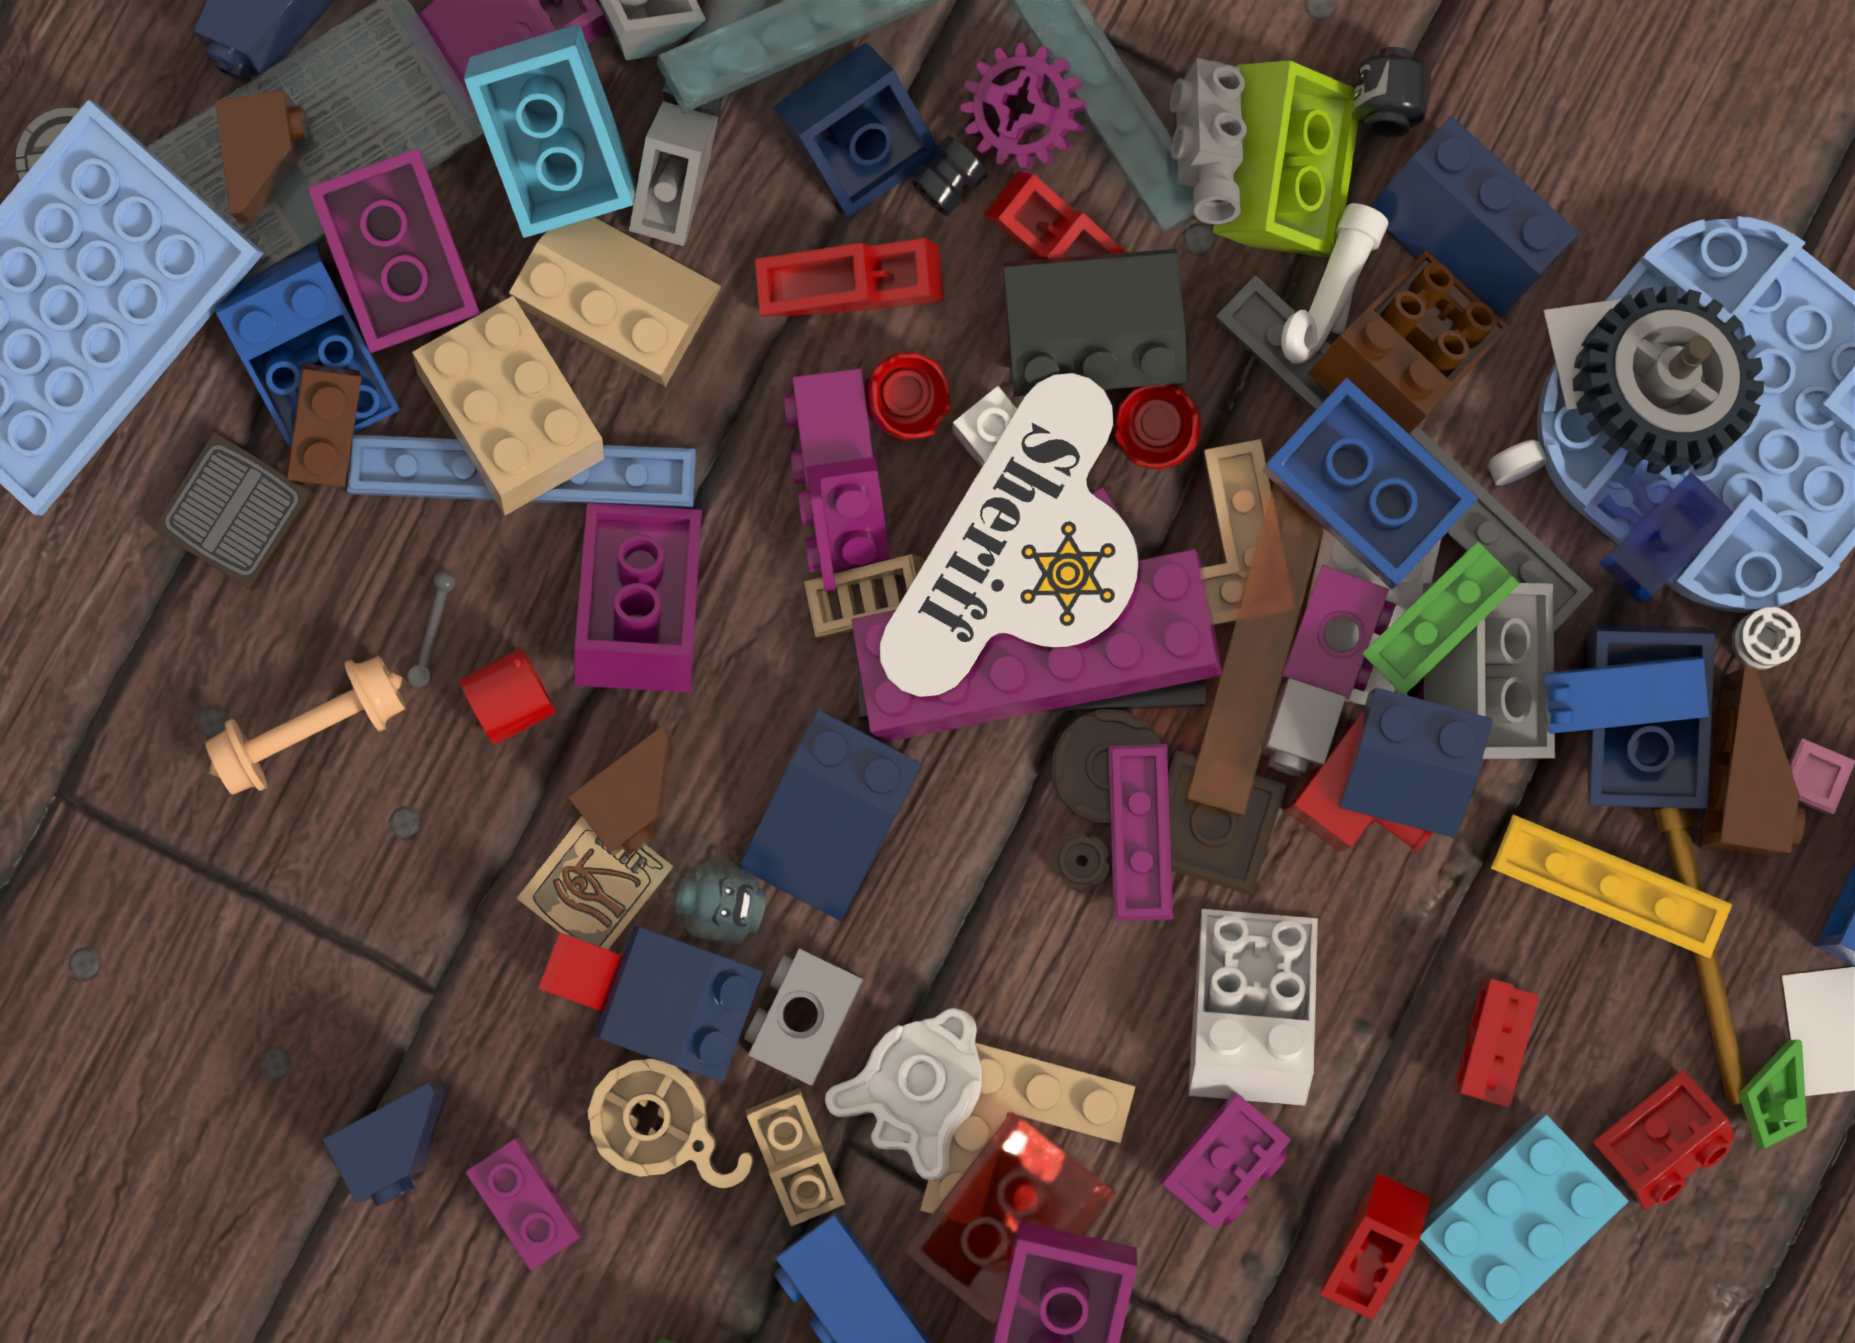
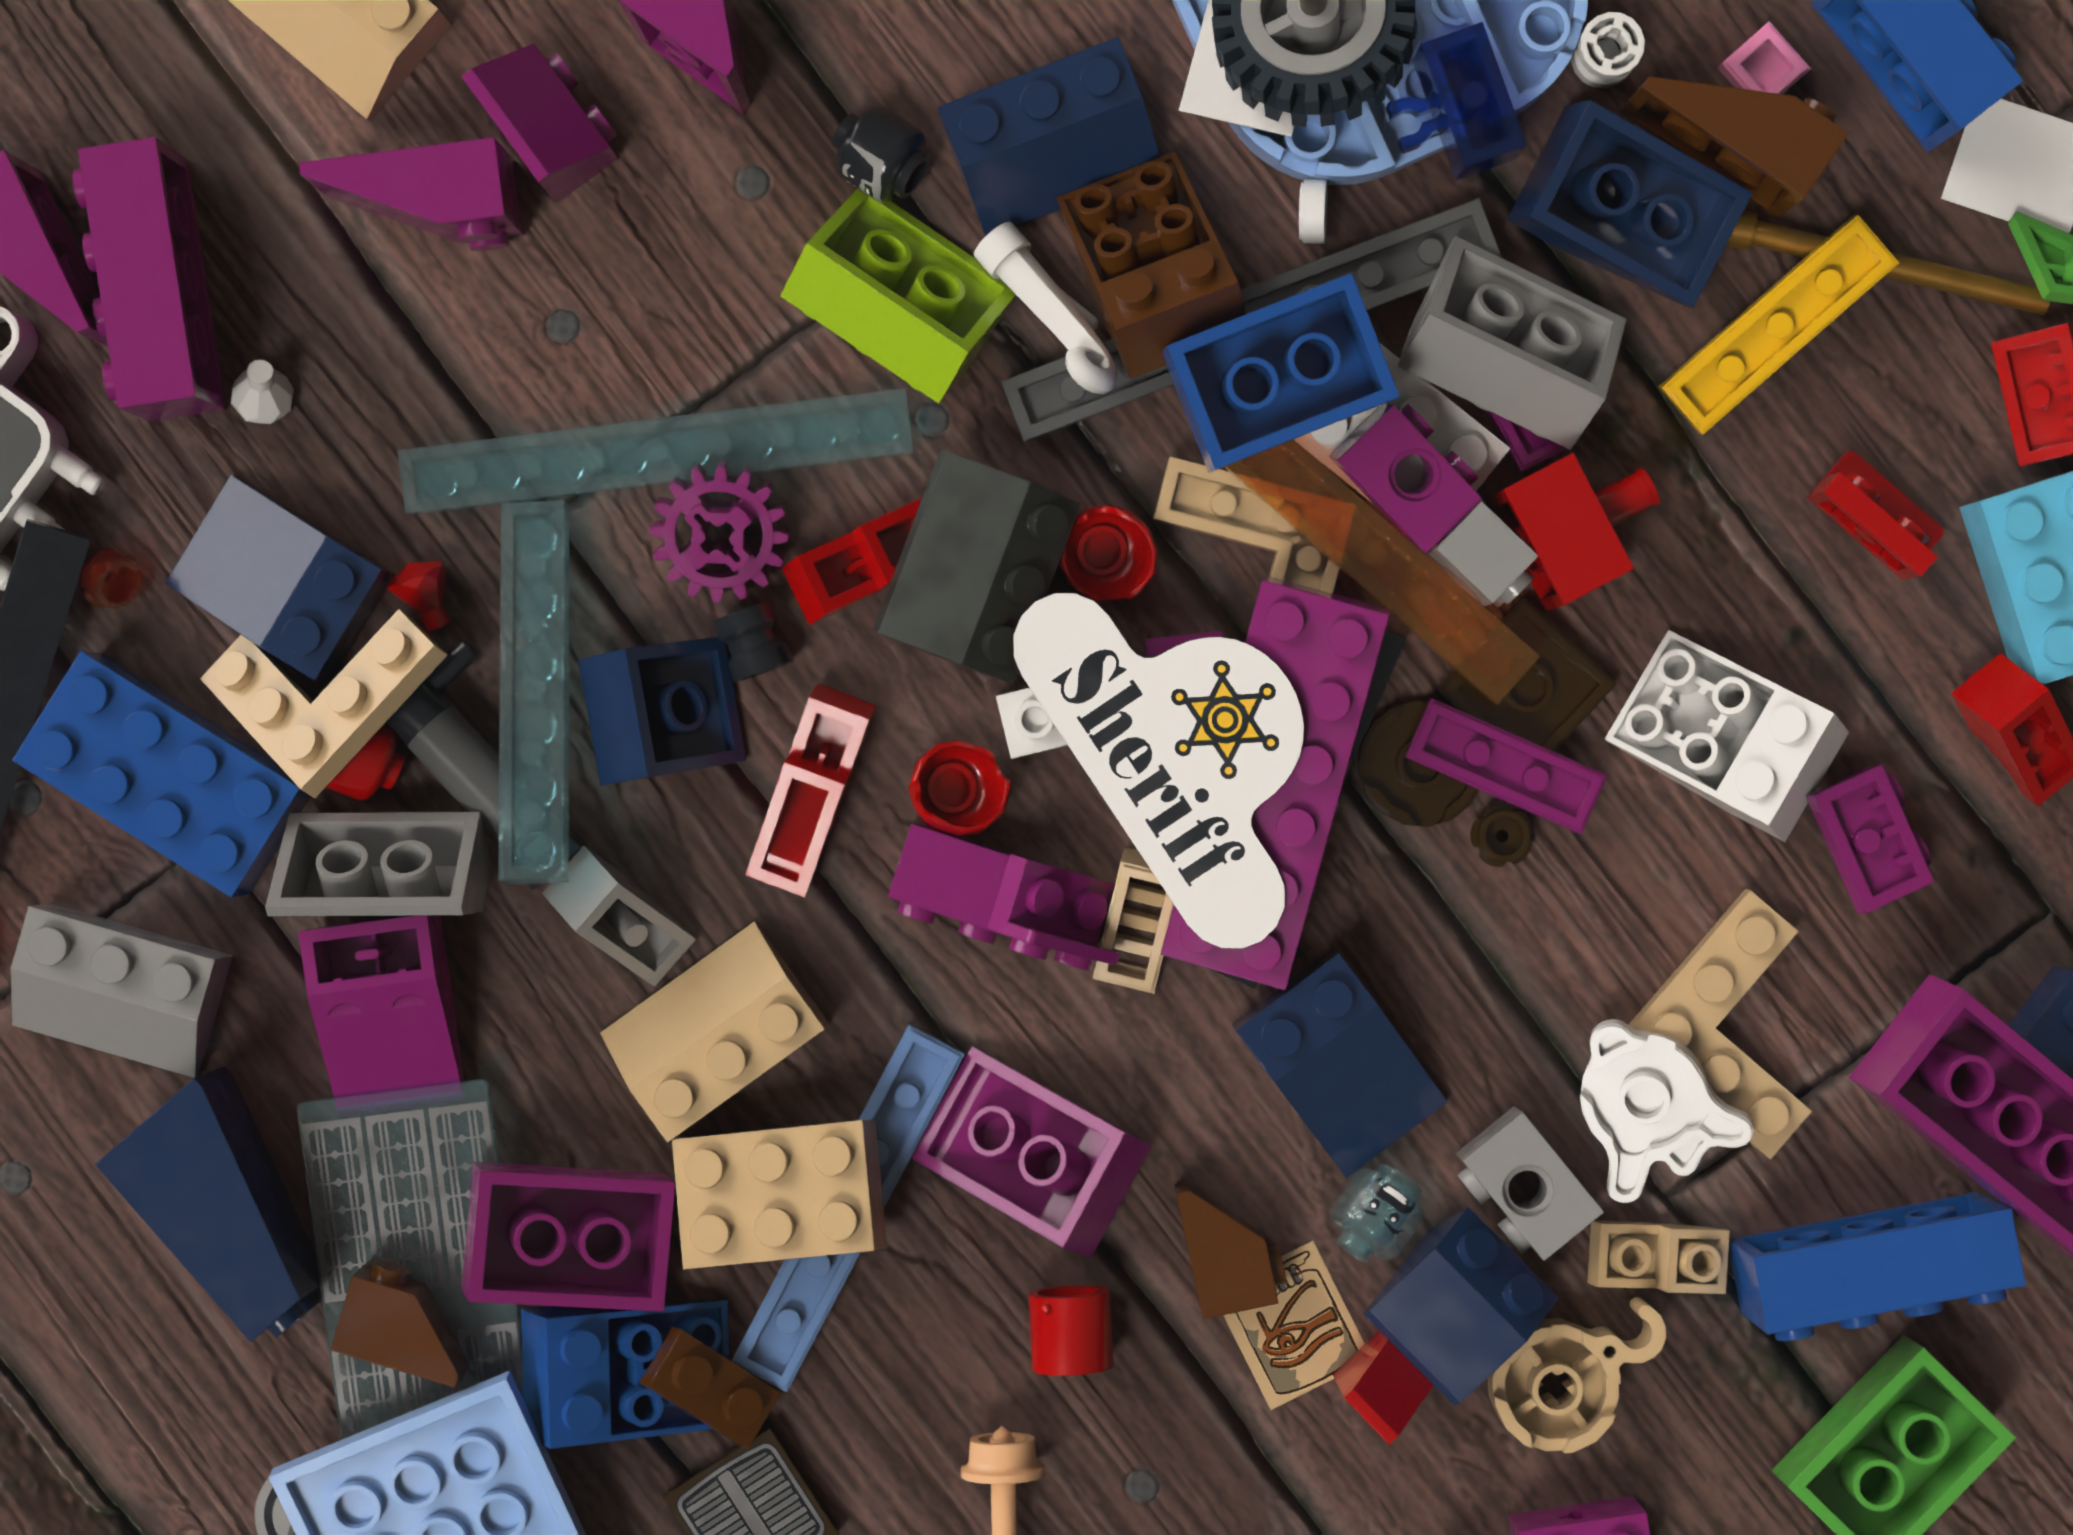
camera: 60 degrees left, 5 degrees up
(420, 675) = (1004, 1402): dark grey hinge -> none
(550, 130) = (522, 1024): medium azure brick -> none
(1010, 1181) = (1799, 1060): clear red slope -> none
(1209, 137) = (845, 372): light grey brick -> none
(1415, 762) = (1585, 465): dark blue slope -> none
(1441, 618) = (1451, 368): bright green hinge -> none
(1625, 694) = (1607, 219): blue hinge -> none

